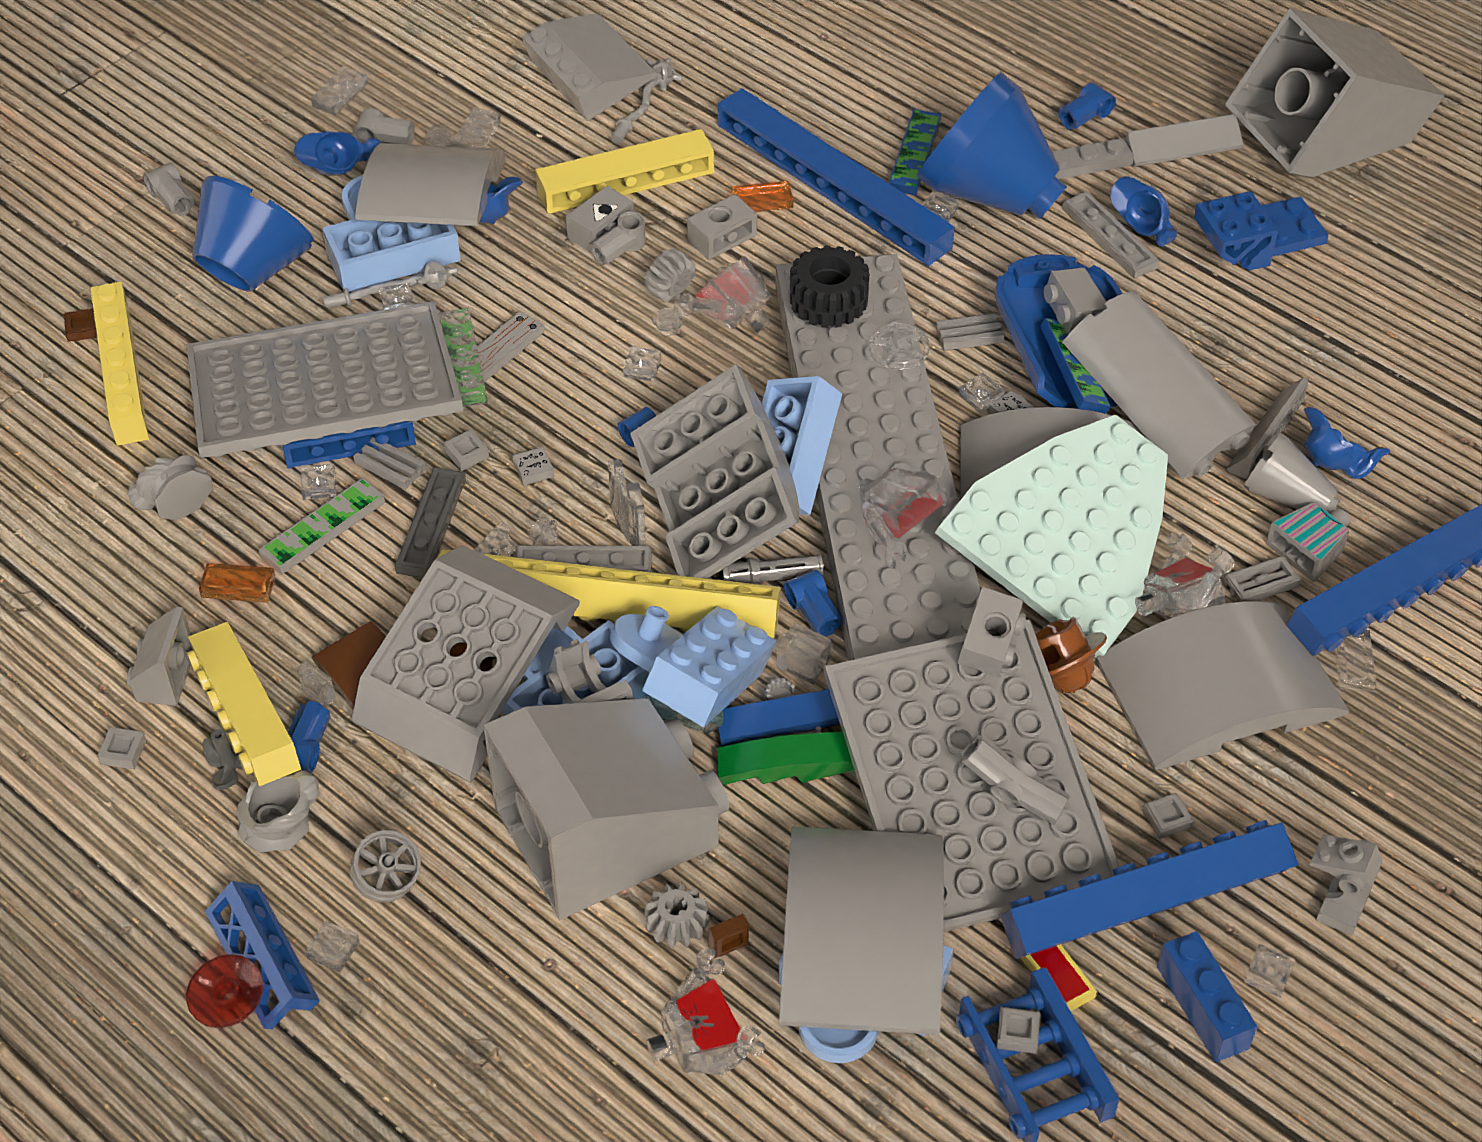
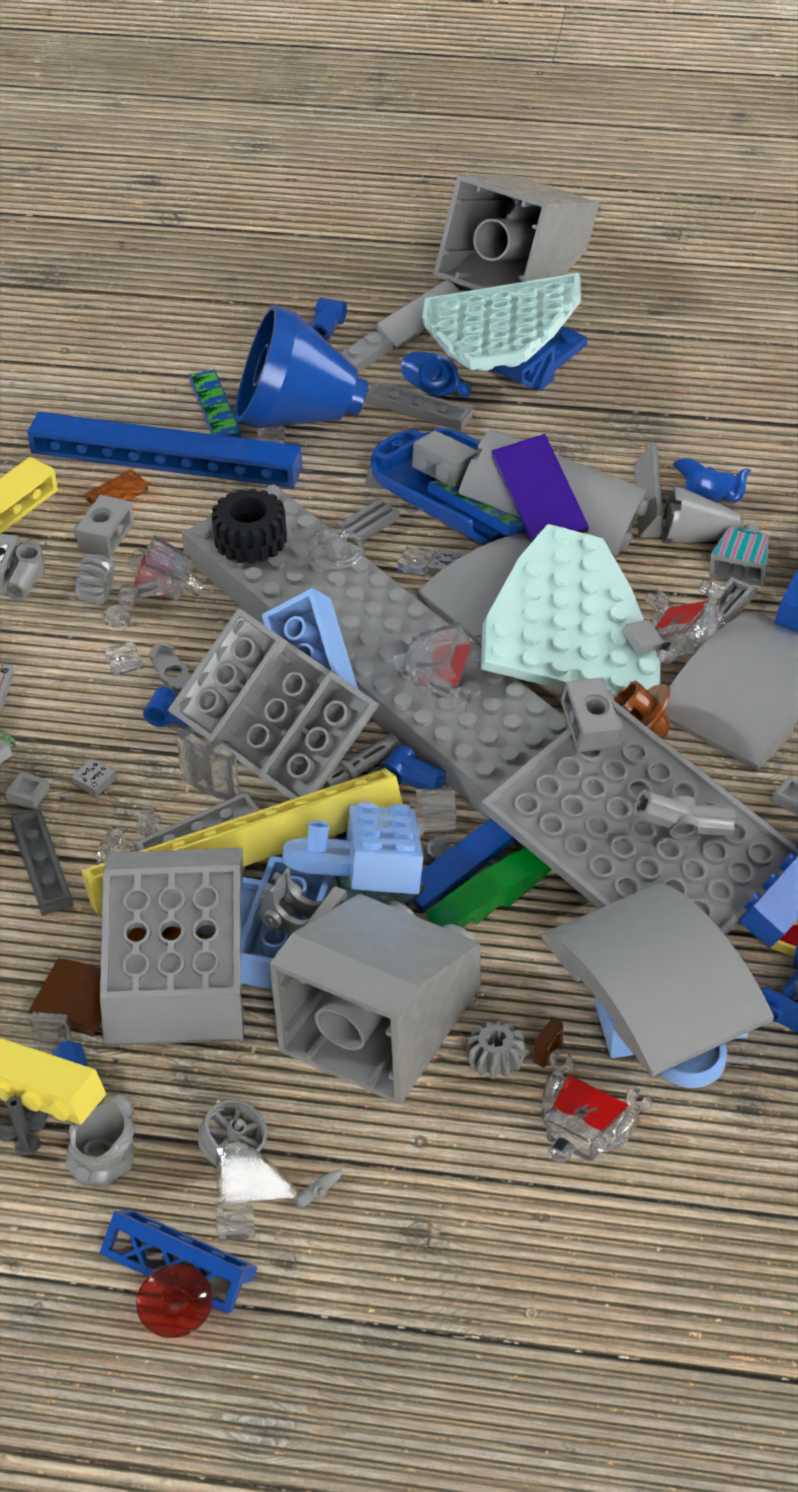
camera: 30 degrees left, 5 degrees down
(367, 914) = (249, 1176): none -> clear slope
(425, 958) = (317, 1189): none -> light grey helmet
(678, 382) = (164, 659): none -> light grey piece
(1130, 575) = (642, 636): none -> light grey tile
(1137, 372) = (538, 486): none -> dark purple tile
(1235, 181) = (501, 321): none -> light aqua wing

